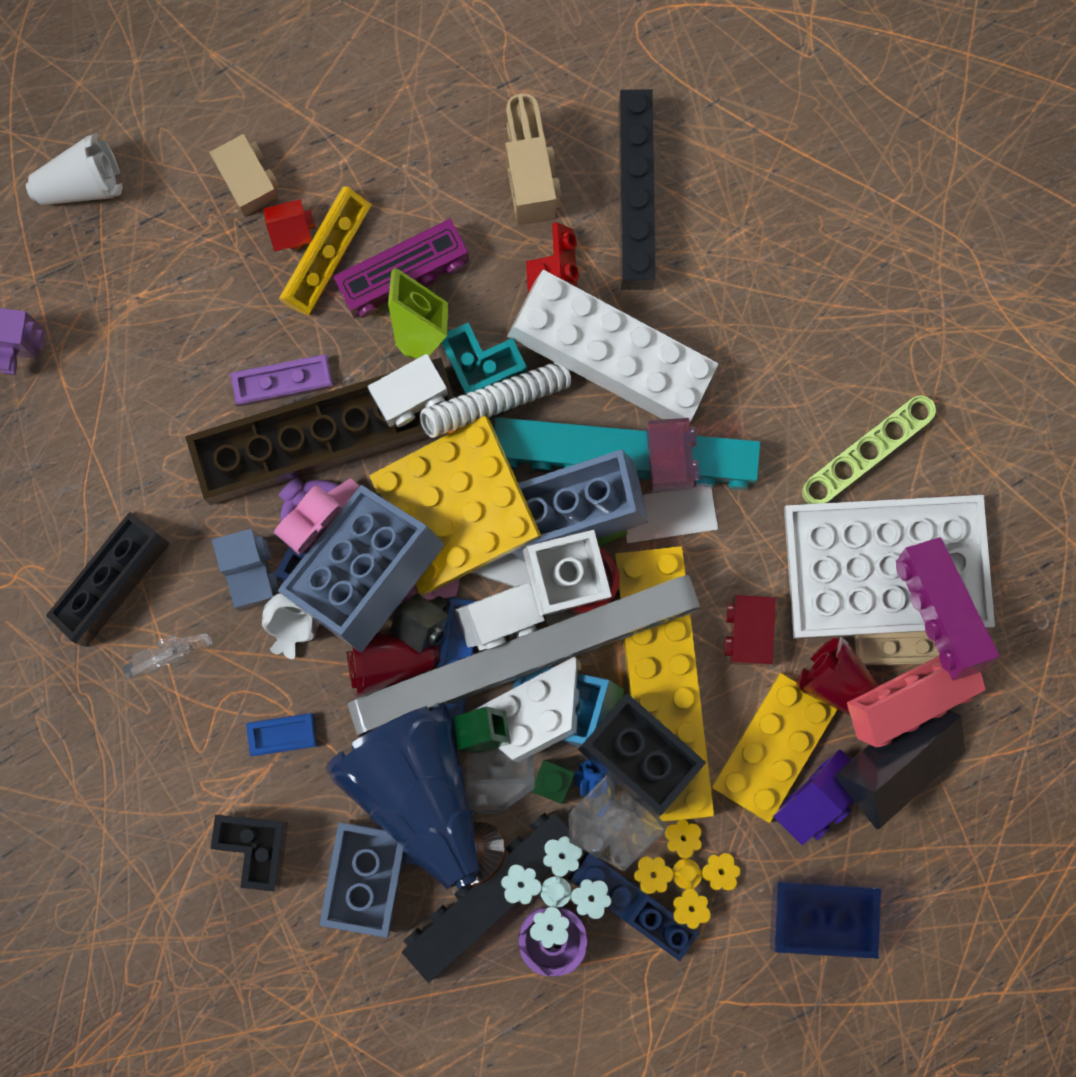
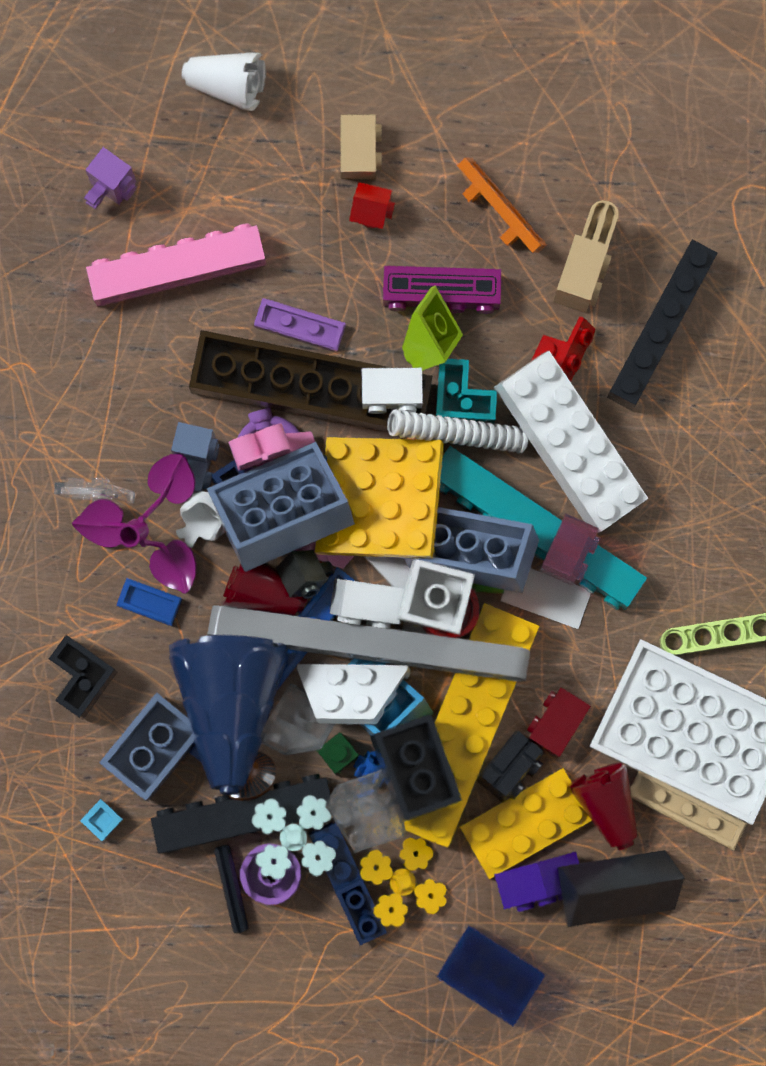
camera: 30 degrees right, 0 degrees up
(107, 580) = (80, 408): black slope -> none
(125, 387) = (176, 265): none -> bright pink brick
(192, 681) = (103, 525): none -> magenta plant
(325, 251) = (389, 241): yellow brick -> none
(353, 979) = (101, 820): none -> medium azure plate
(388, 148) = (484, 186): none -> orange hinge
(481, 730) = (304, 682): dark green brick -> none
(521, 976) = (231, 889): none -> black axle
(729, 700) = (510, 767): none -> black brick
(910, 701) = (657, 843): coral brick -> none
(946, 609) = (717, 787): magenta brick -> none

